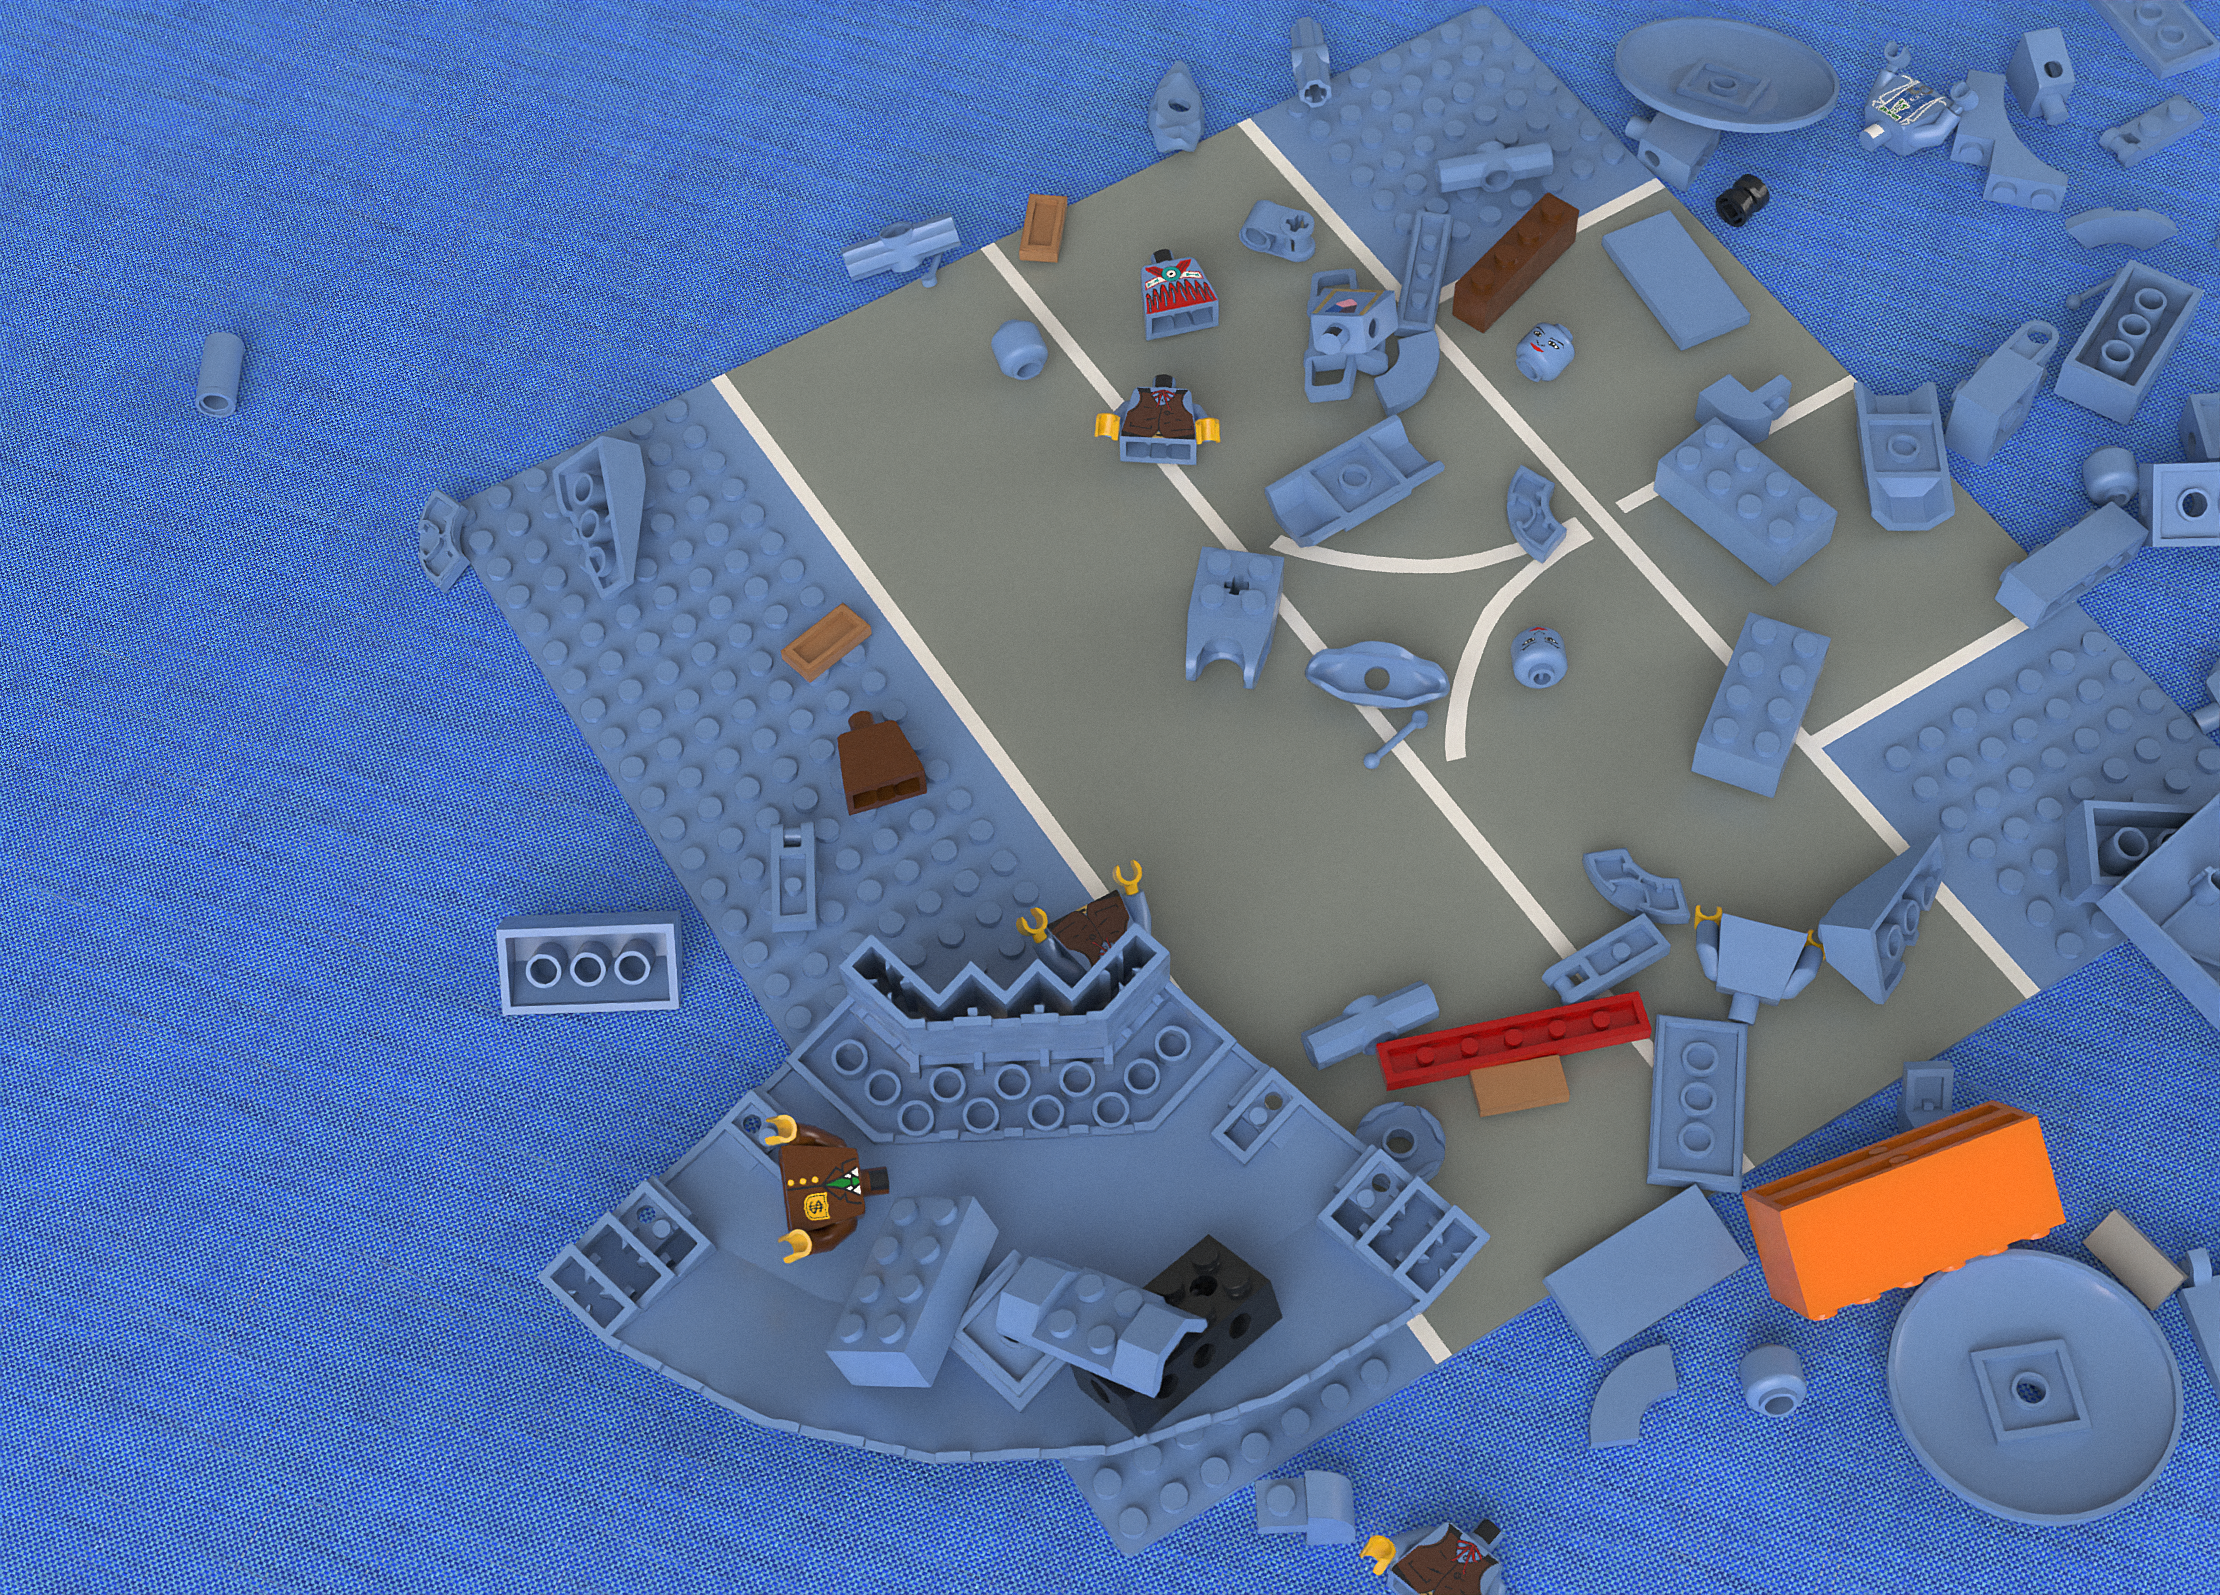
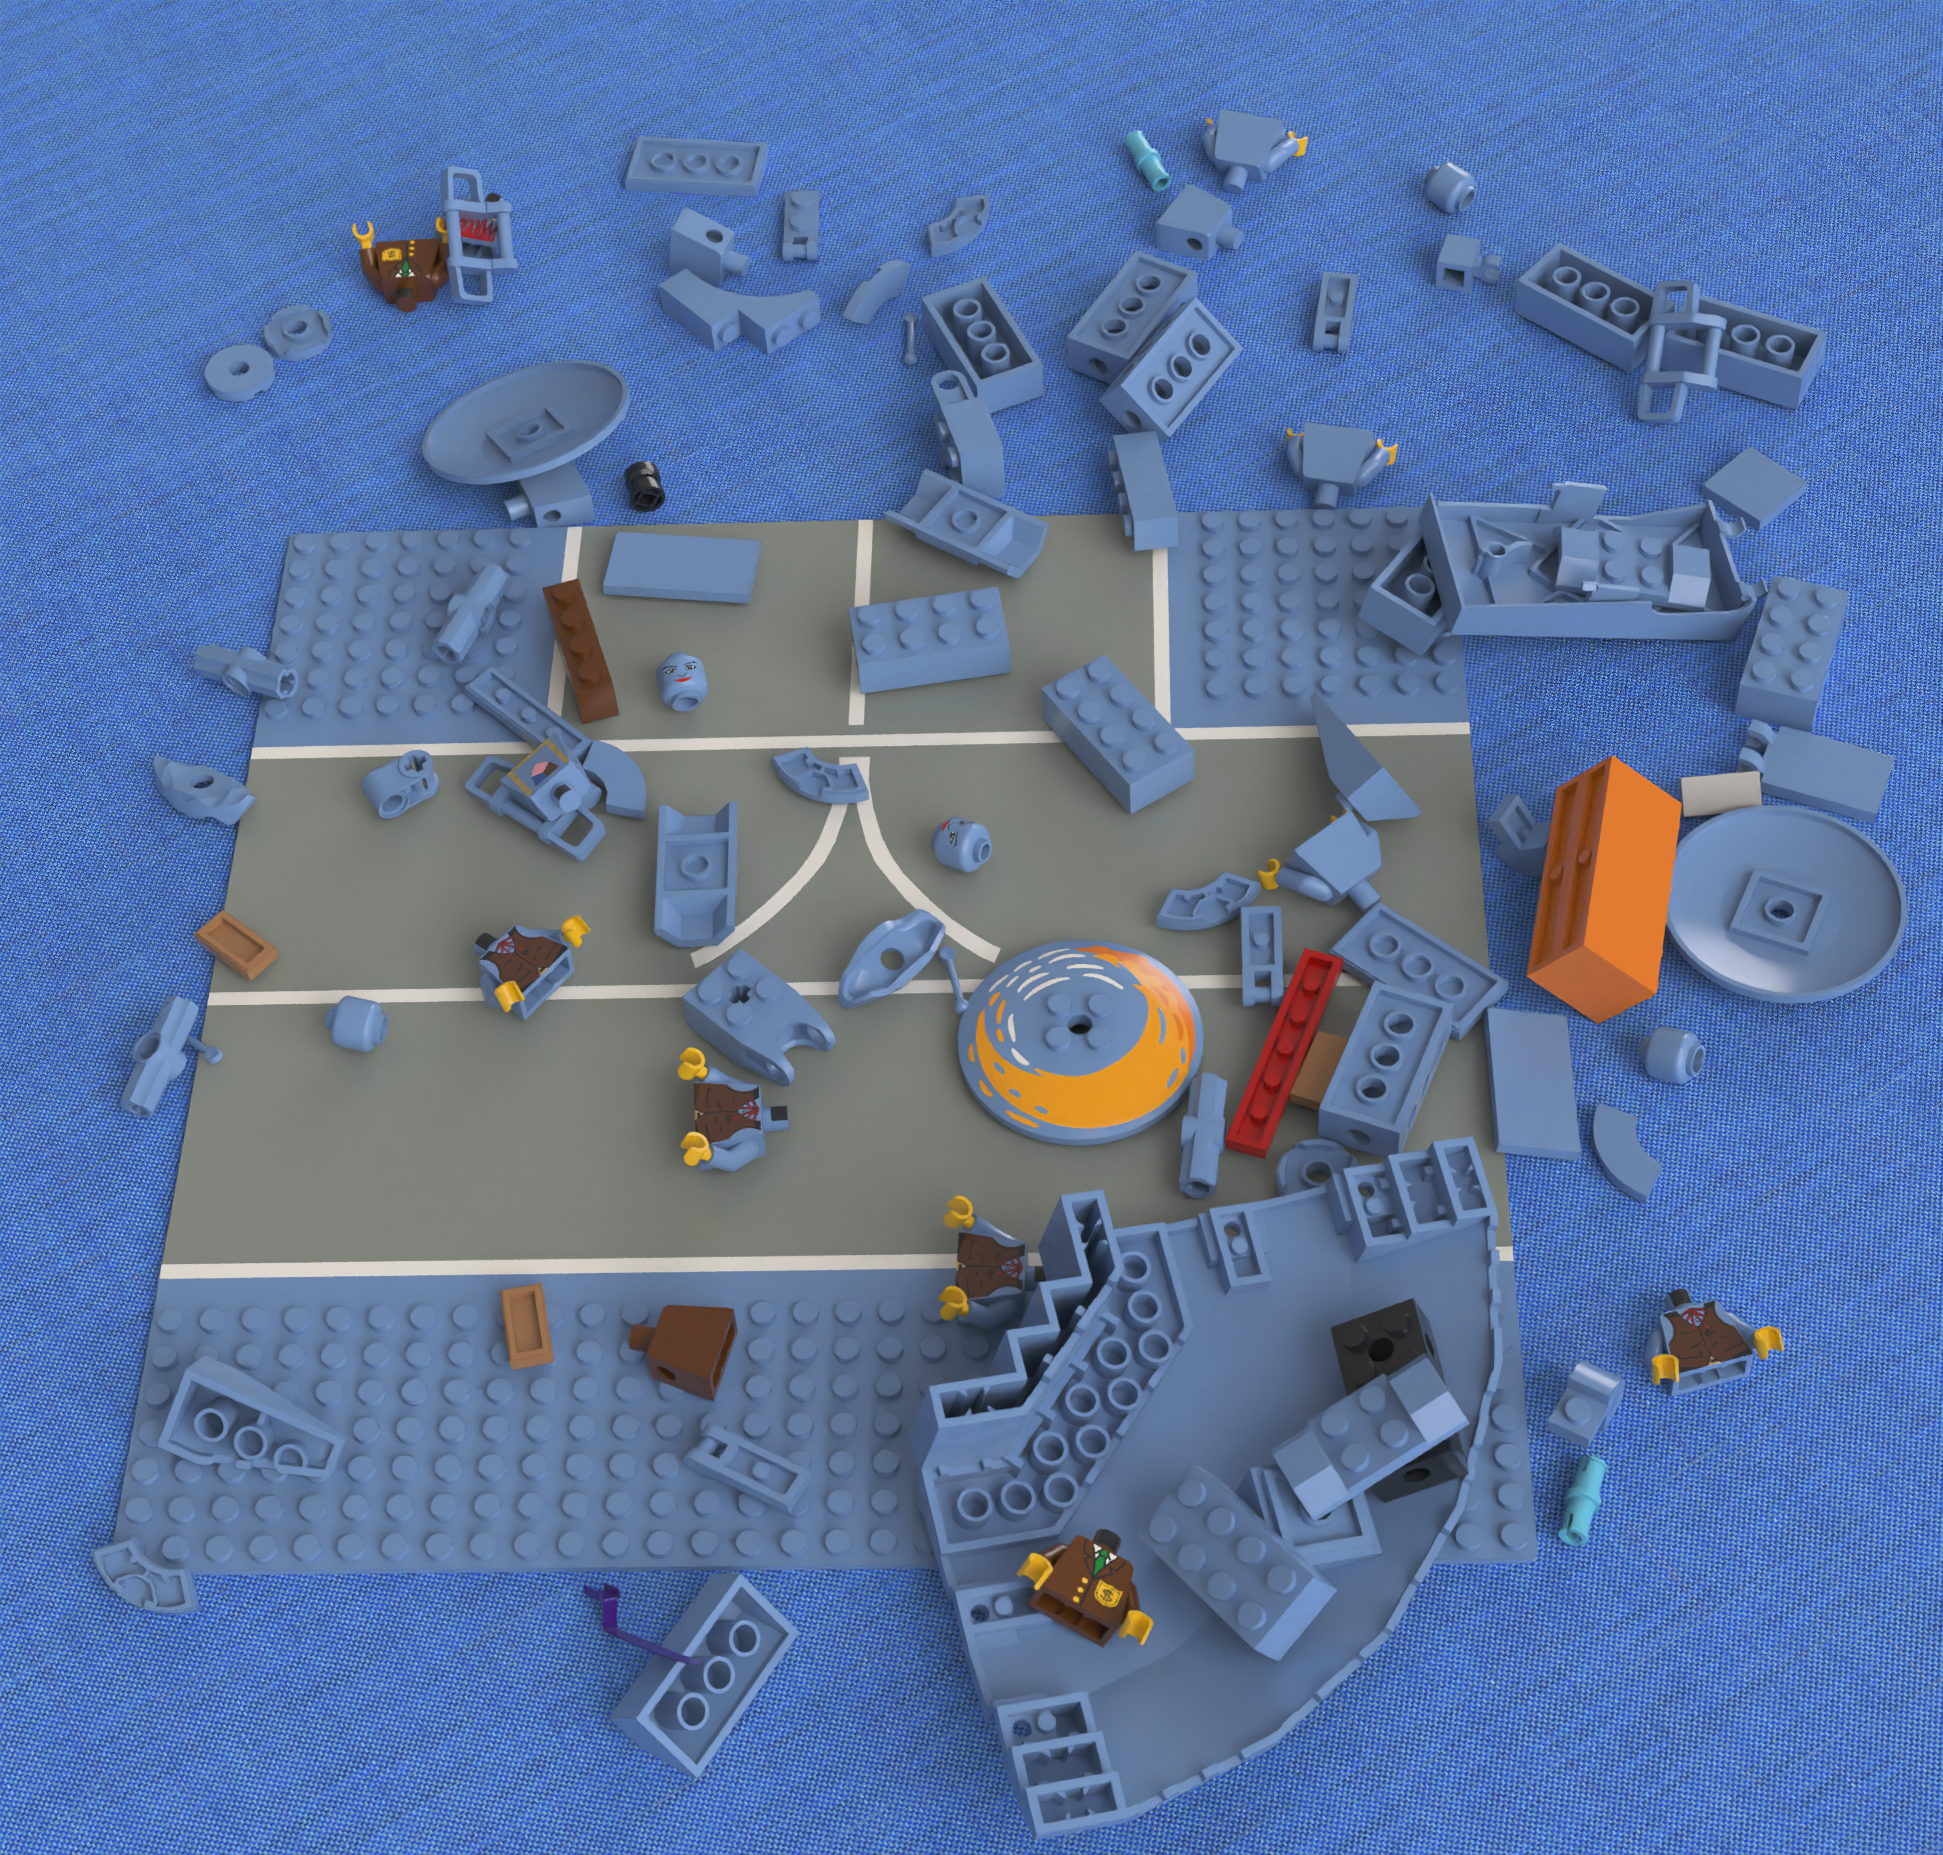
camera: 55 degrees left, 5 degrees down
(618, 849) = (609, 1598): none -> dark purple piece
(1115, 658) = (727, 1117): none -> torso
(1176, 296) = (401, 889): torso -> none
(1209, 1562) = (1582, 1500): none -> medium azure pin
(1396, 922) = (1089, 1085): none -> dish
(1547, 1132) = (1385, 1070): none -> medium blue brick
(1744, 411) = (838, 594): medium blue brick -> none
(1907, 112) = (660, 344): medium blue torso -> none
(2111, 475) = (1085, 425): medium blue head -> none

